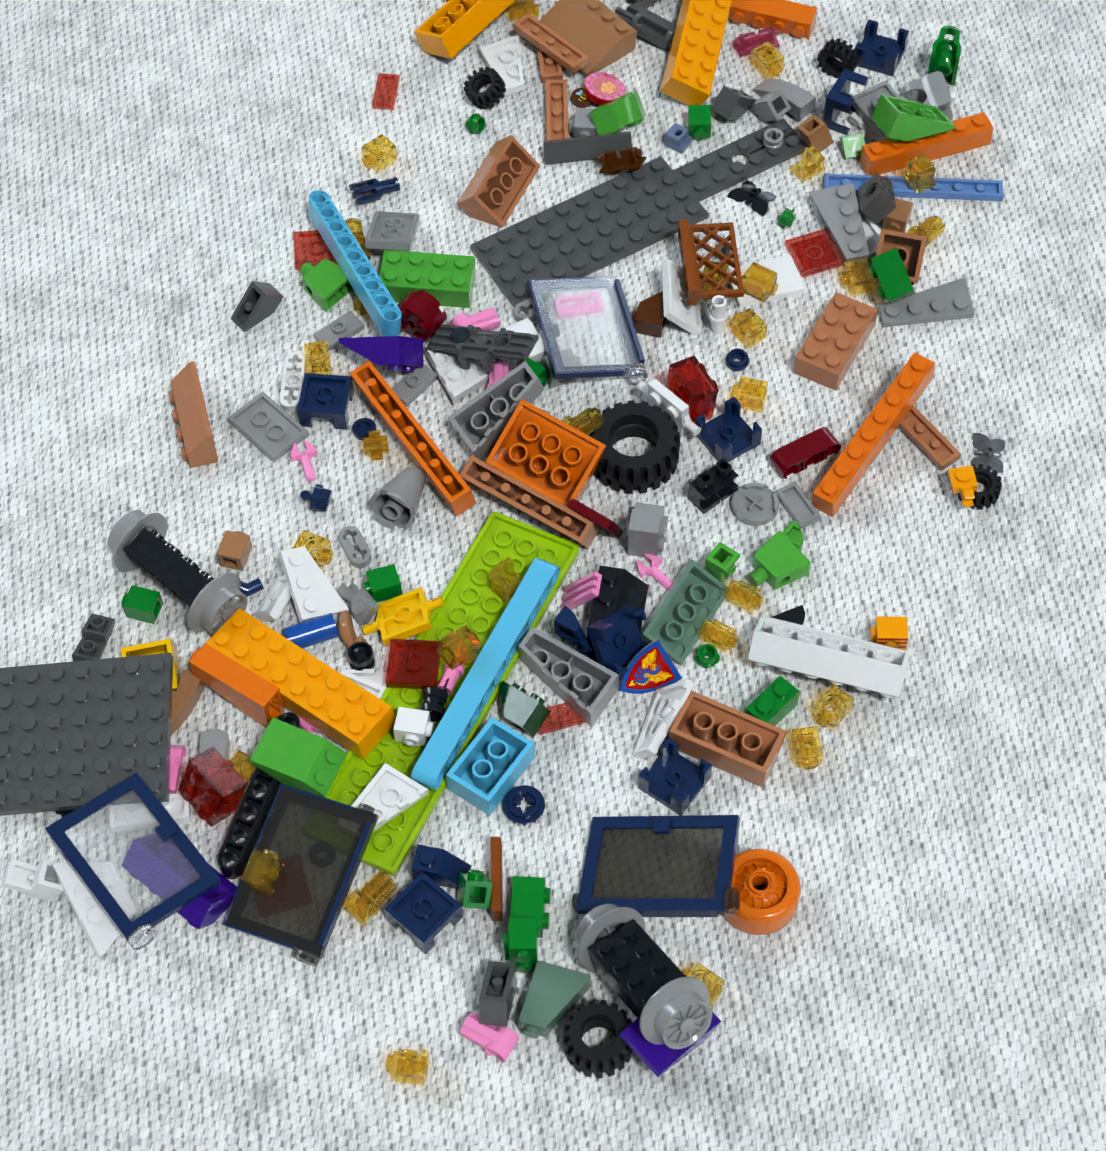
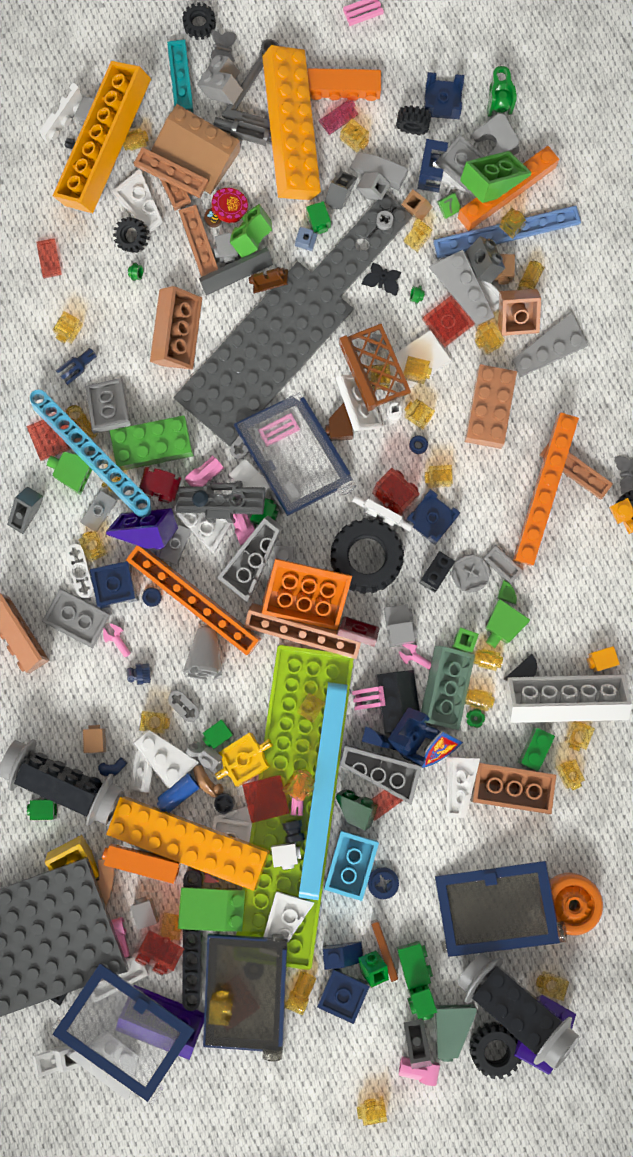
camera: 20 degrees left, 25 degrees up
(94, 638) = (17, 848): dark grey slope -> none
(375, 445) = (167, 613): clear yellow gear -> none
(586, 421) = (325, 559): clear yellow piece -> none
(674, 778) = (484, 829): dark blue panel -> none
(805, 451) = (496, 517): dark red beam -> none
(892, 276) = (521, 338): green brick -> none

